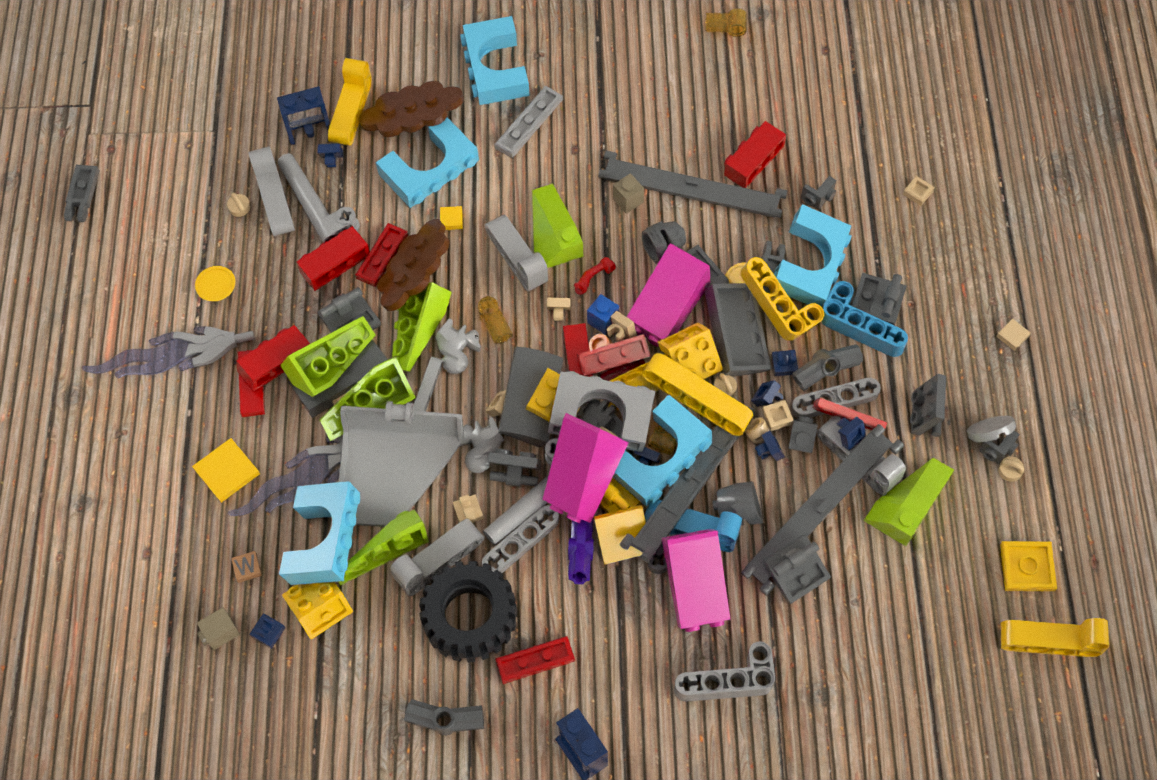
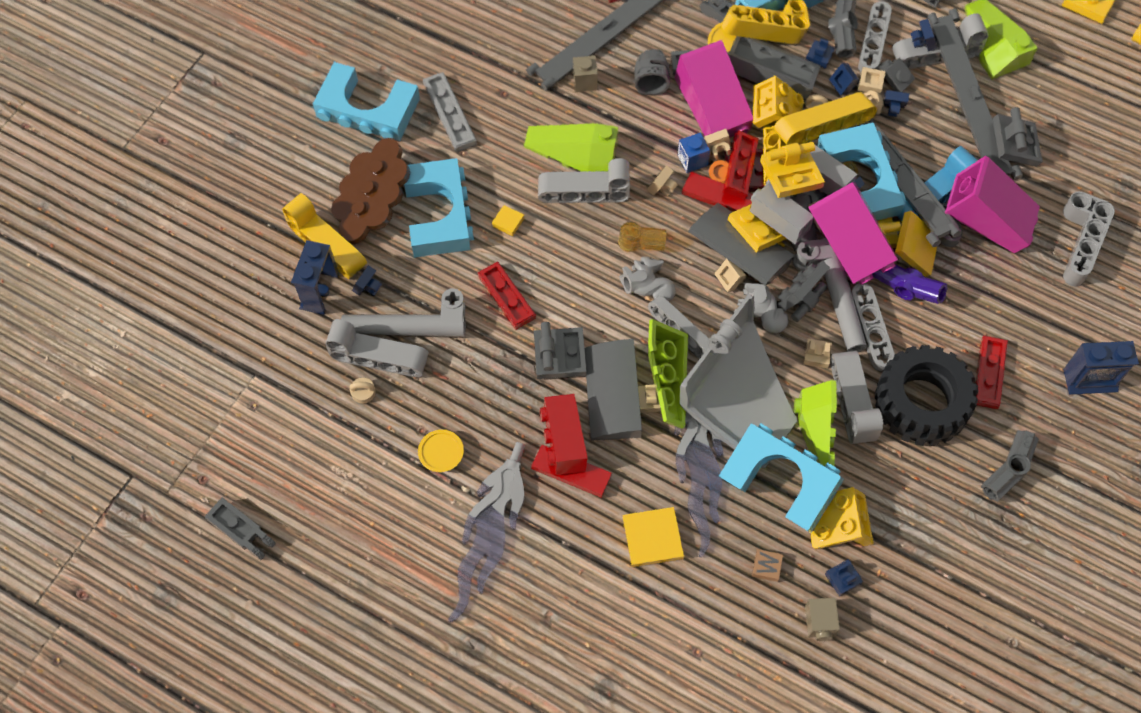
camera: 60 degrees left, 0 degrees up
(325, 360) = (598, 388): lime wedge -> none
(333, 258) = (484, 335): red brick -> none
(411, 268) = (546, 268): reddish brown plate -> none
(417, 323) = (600, 297): lime wedge -> none
(583, 284) = (648, 155): red piece -> none
(603, 386) = (792, 169): none -> yellow plate
(739, 499) = (936, 146): dark grey helmet -> none
(833, 409) = (900, 34): tile -> none

